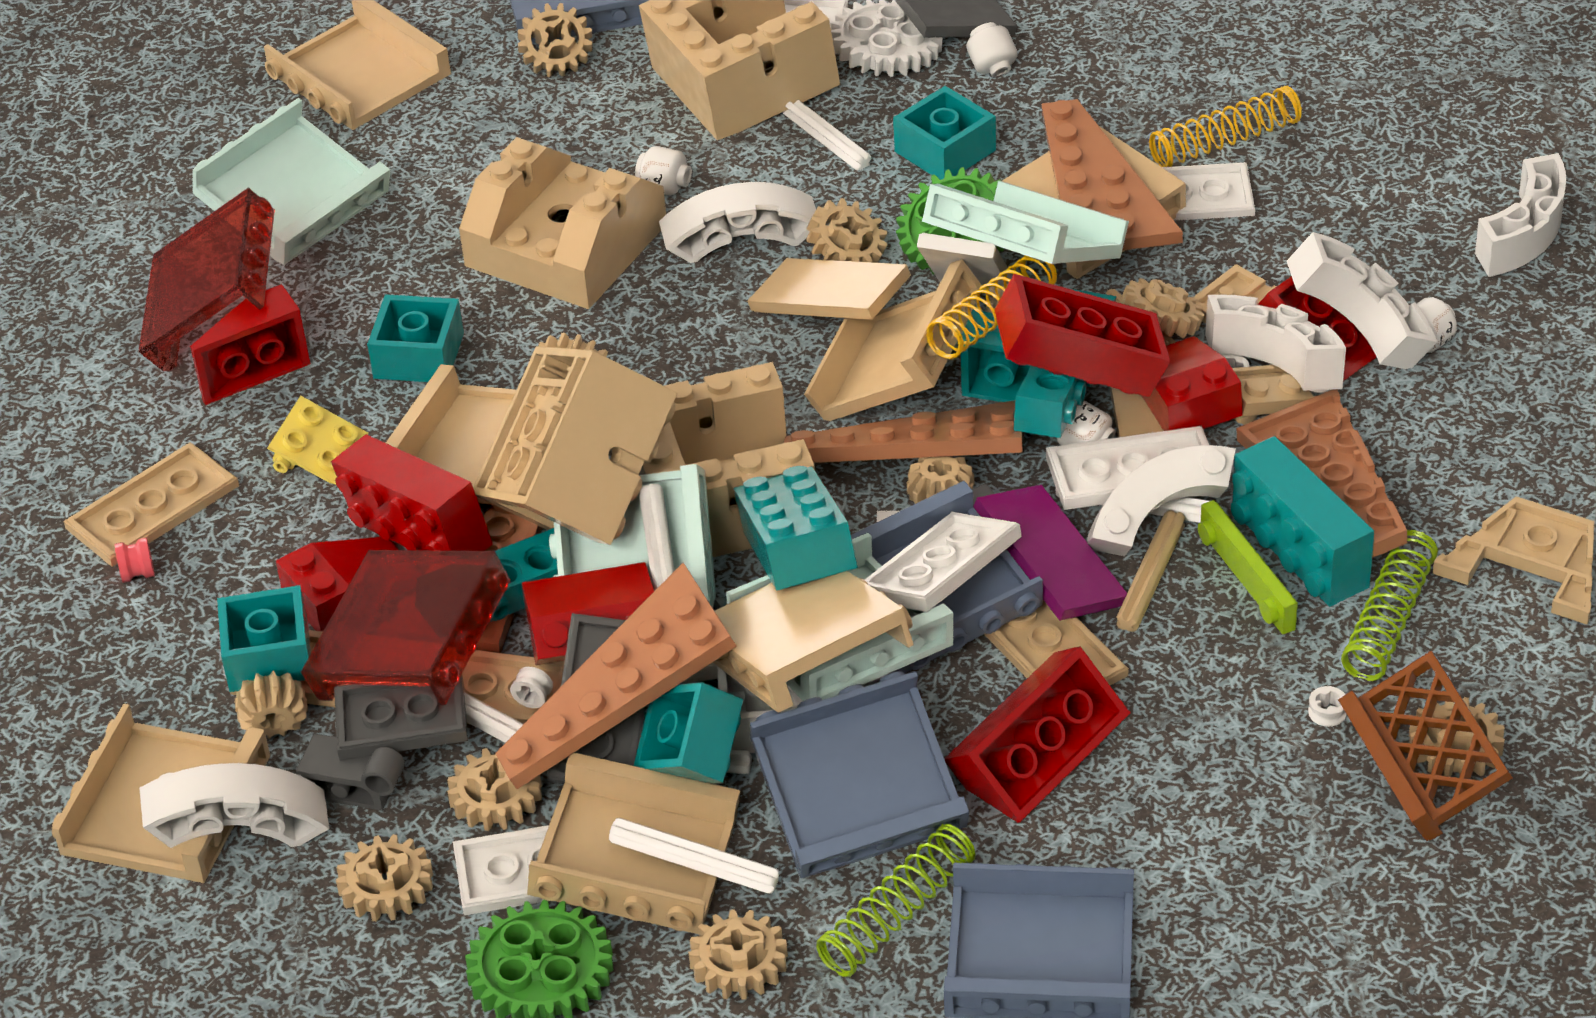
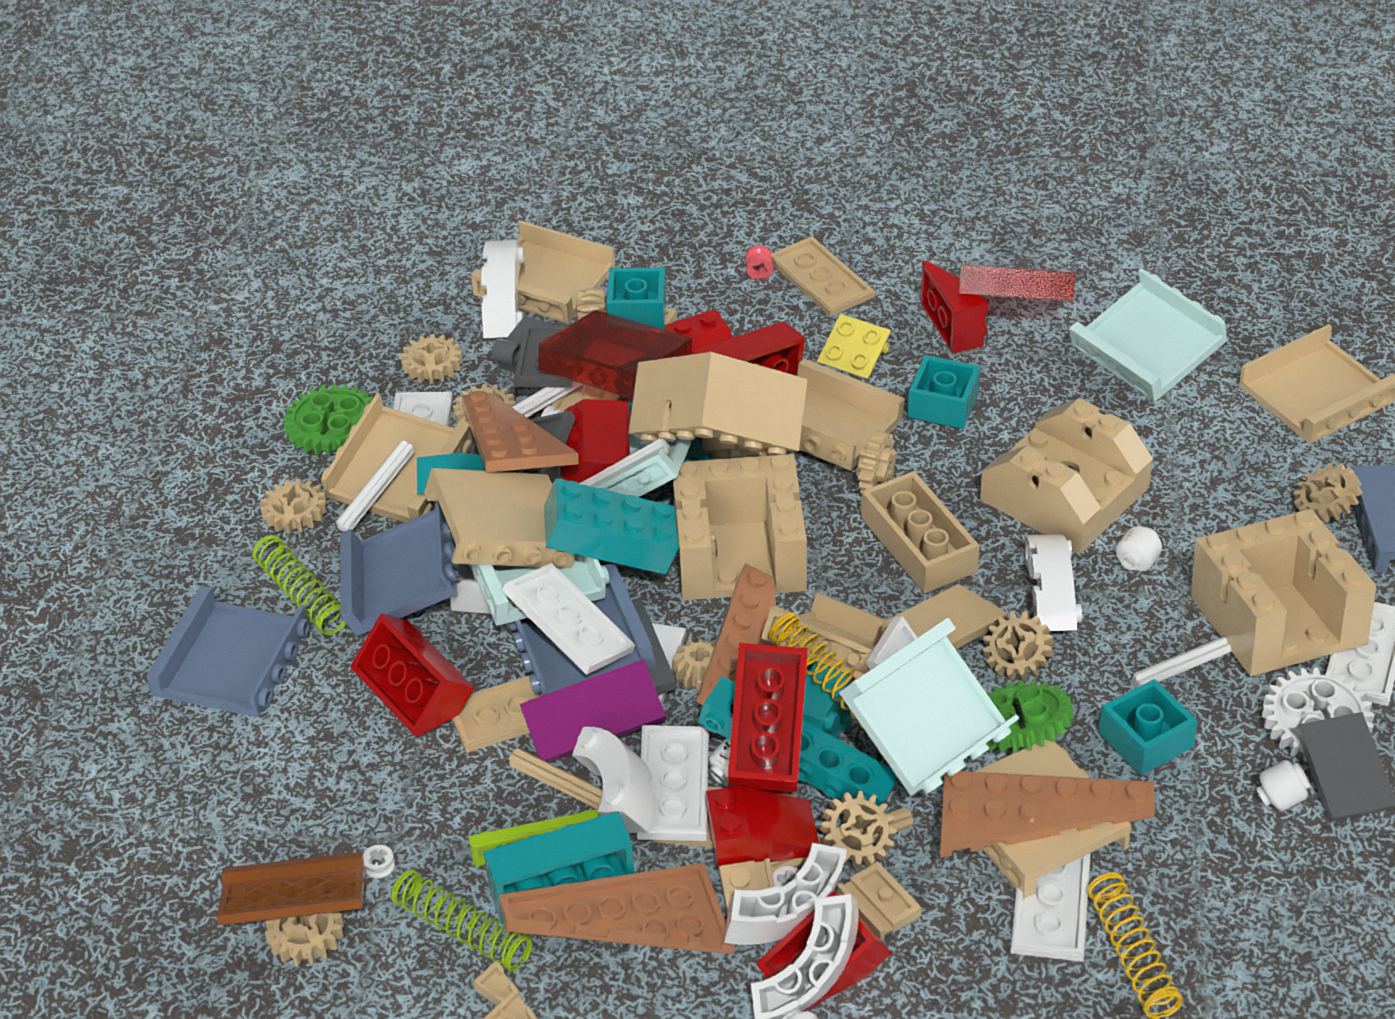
camera: 100 degrees right, 0 degrees up
(683, 324) = (919, 532): none -> tan brick

